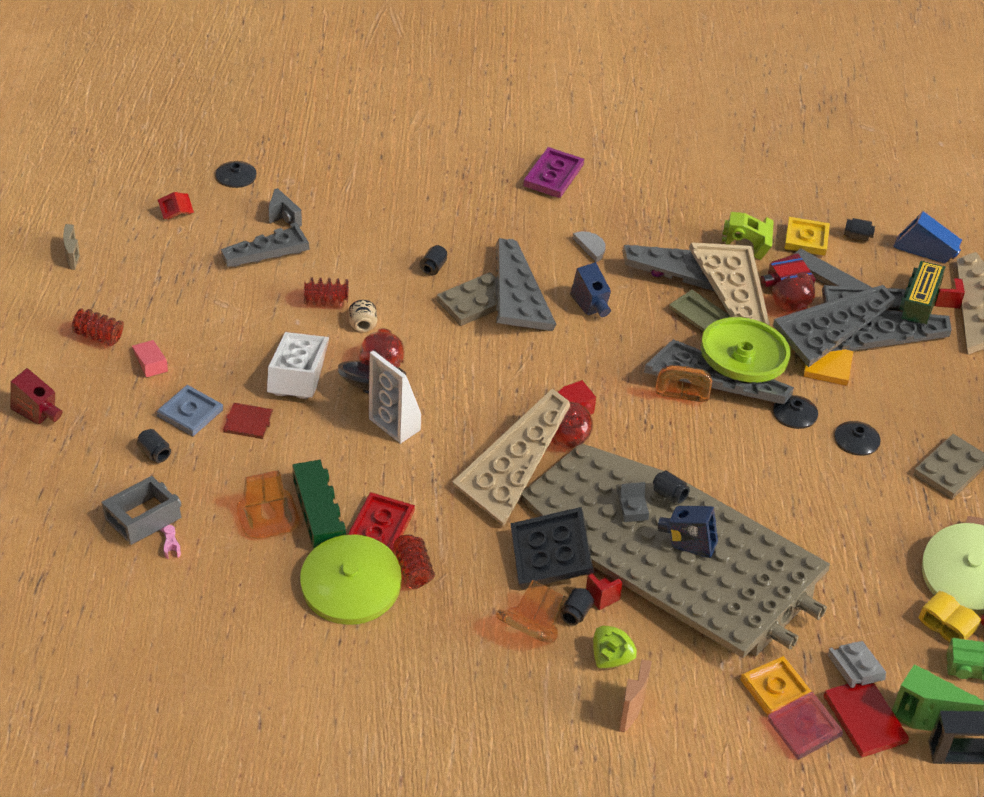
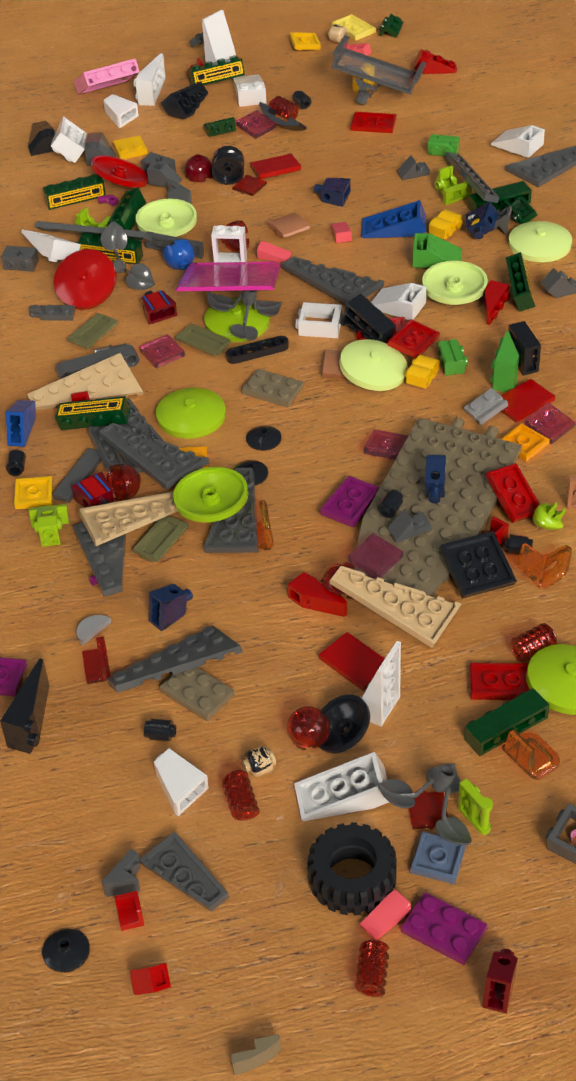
camera: 100 degrees left, 0 degrees up
(114, 391) = (444, 928): none -> magenta plate
(153, 445) = (501, 862): black brick -> none
(207, 356) = (352, 843): none -> black tyre
(226, 435) = (470, 804): none -> lime plate
(245, 208) = (129, 910): none -> red panel
(256, 380) = (442, 779): none -> dark grey plant
(367, 259) = (179, 780): none -> white slope
(461, 418) = (352, 660): none -> red tile
(492, 179) = (25, 714): none -> black slope
(541, 241) = (96, 663): none -> clear red panel
(599, 462) = (375, 556): none -> clear pink plate
(662, 620) = (513, 492): none -> red tile
(711, 475) = (350, 501): none -> magenta plate
(810, 534) = (385, 444): none -> clear pink plate
(919, 384) = (190, 413): none -> lime dish

